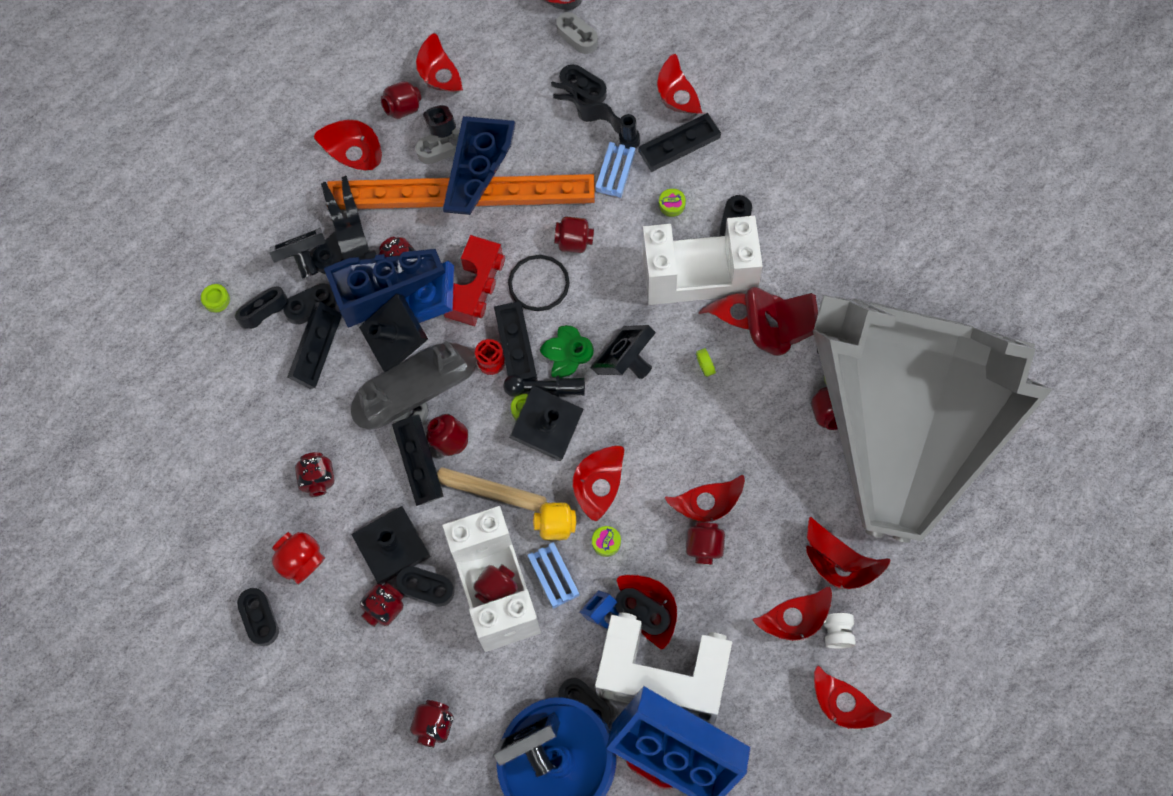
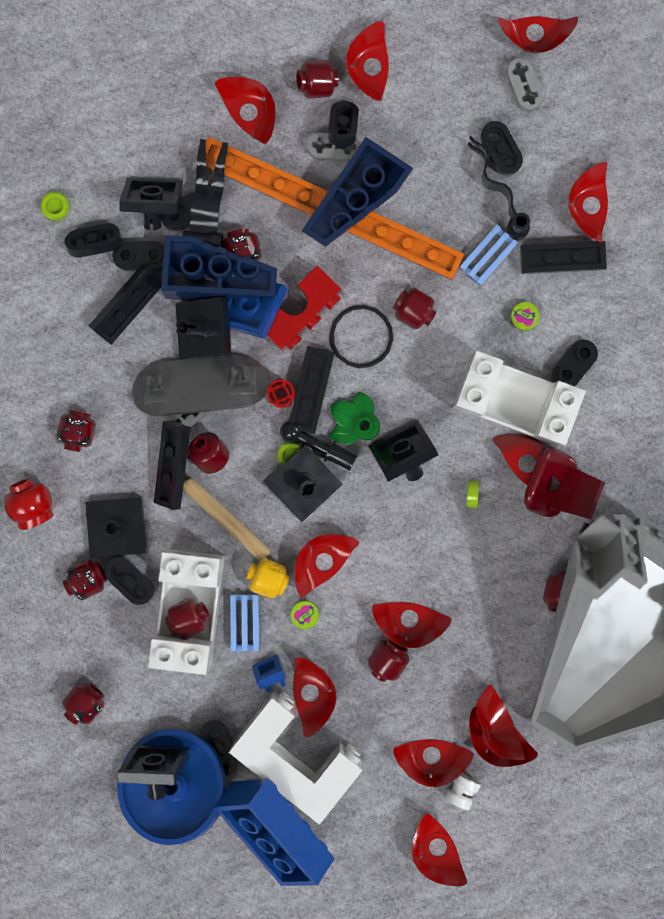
camera: 25 degrees right, 20 degrees up
(644, 610) = (304, 694): black plate -> none

